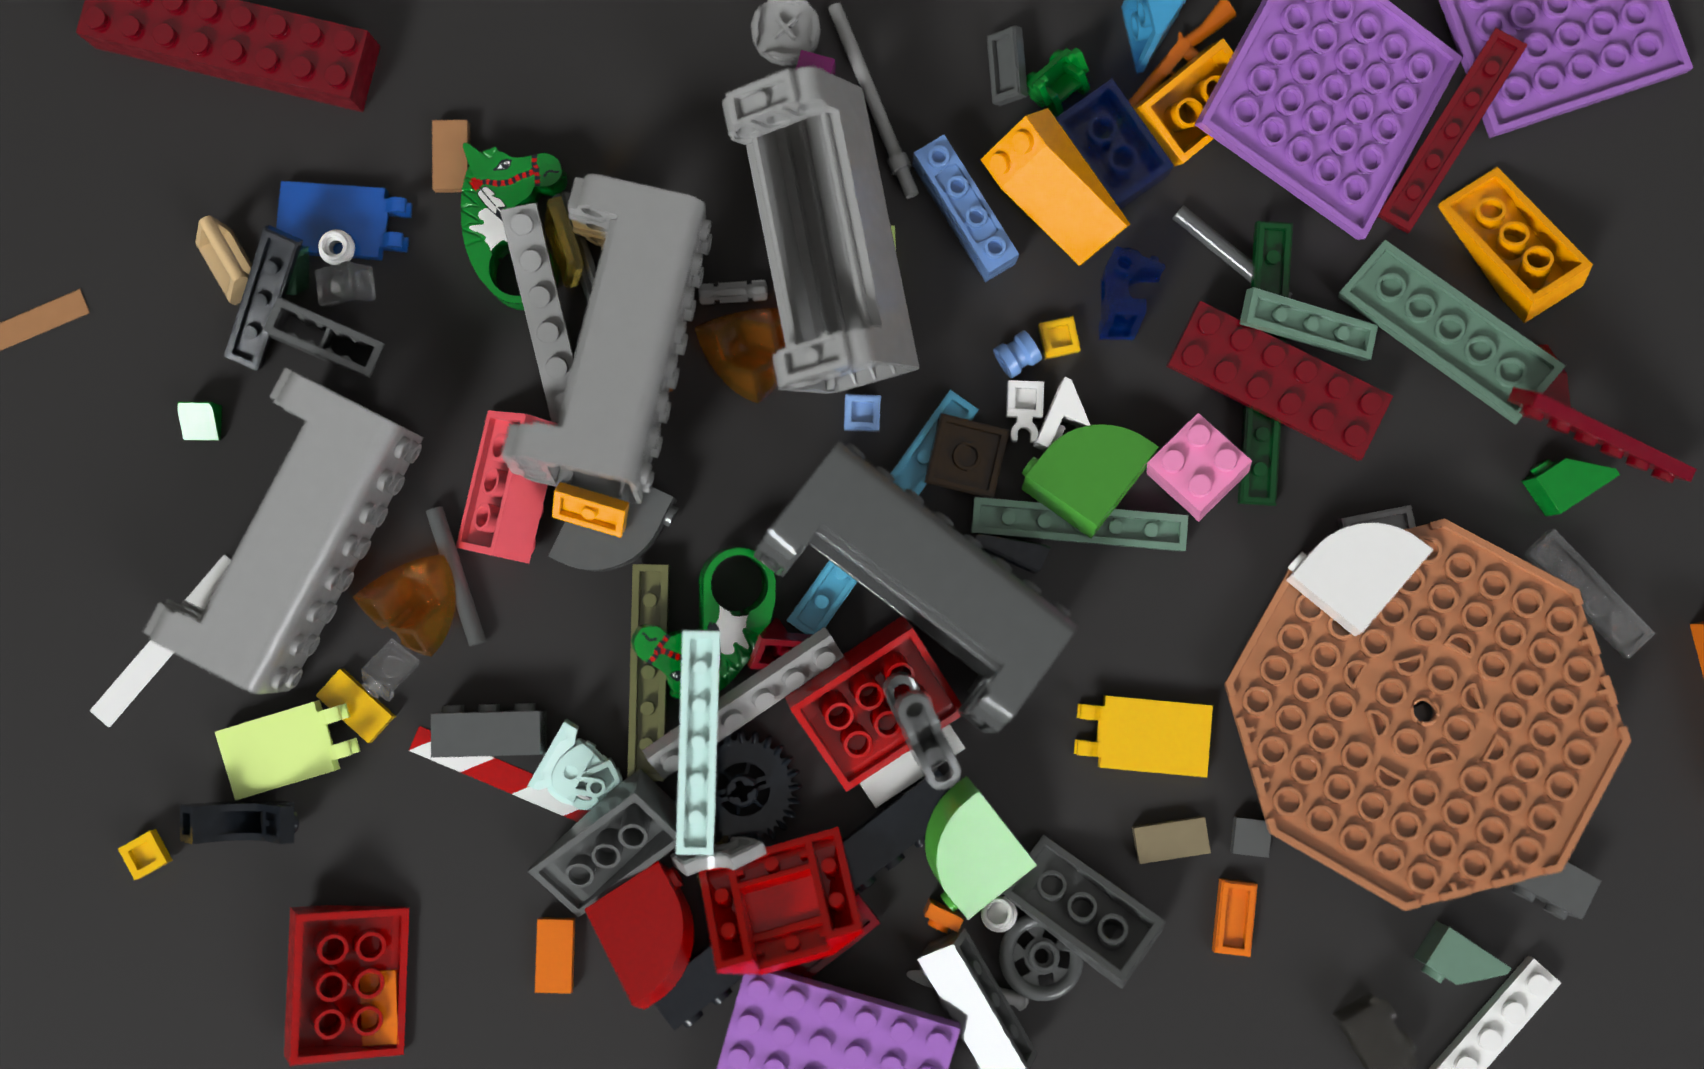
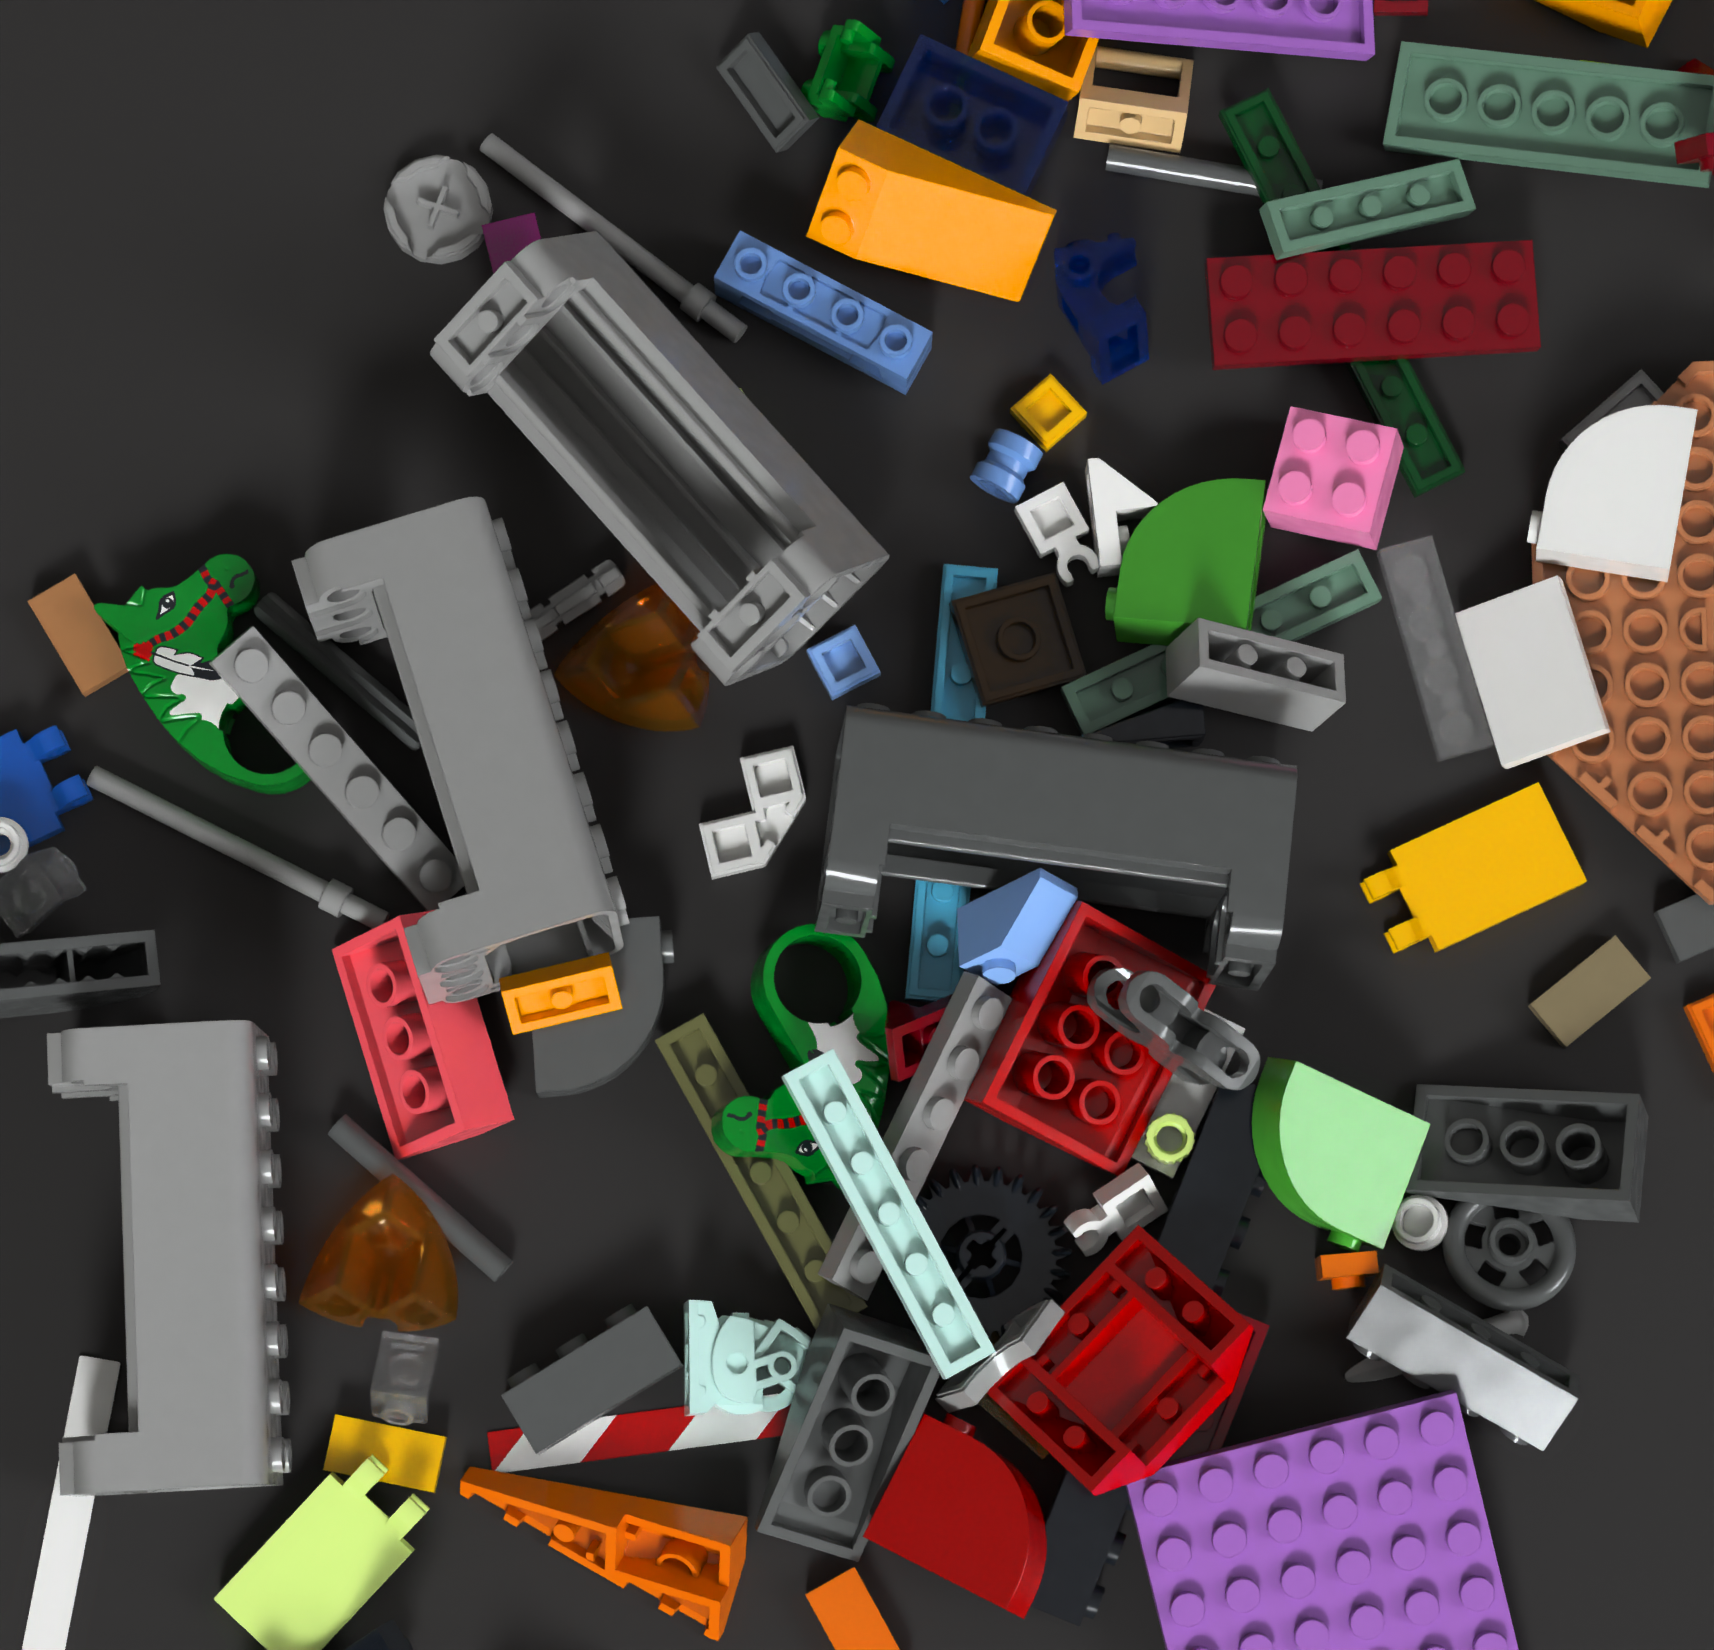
camera: 35 degrees left, 5 degrees down
(472, 844) = (667, 1549): none -> orange wedge
(504, 381) = (332, 896): none -> light grey bar
(563, 242) = (314, 660): clear yellow tile -> none
(779, 468) = (751, 838): none -> white tile
(837, 808) = (1121, 1206): none -> white plate
(866, 617) = (1013, 926): none -> light blue slope
(888, 797) = (1161, 1155): none -> yellowish green axle
(1087, 554) = (1255, 675): none -> light grey brick
(1198, 596) = (1434, 648): none -> clear plate
(1205, 195) = (1134, 116): none -> tan tile
(1246, 643) = (1532, 672): none -> white tile

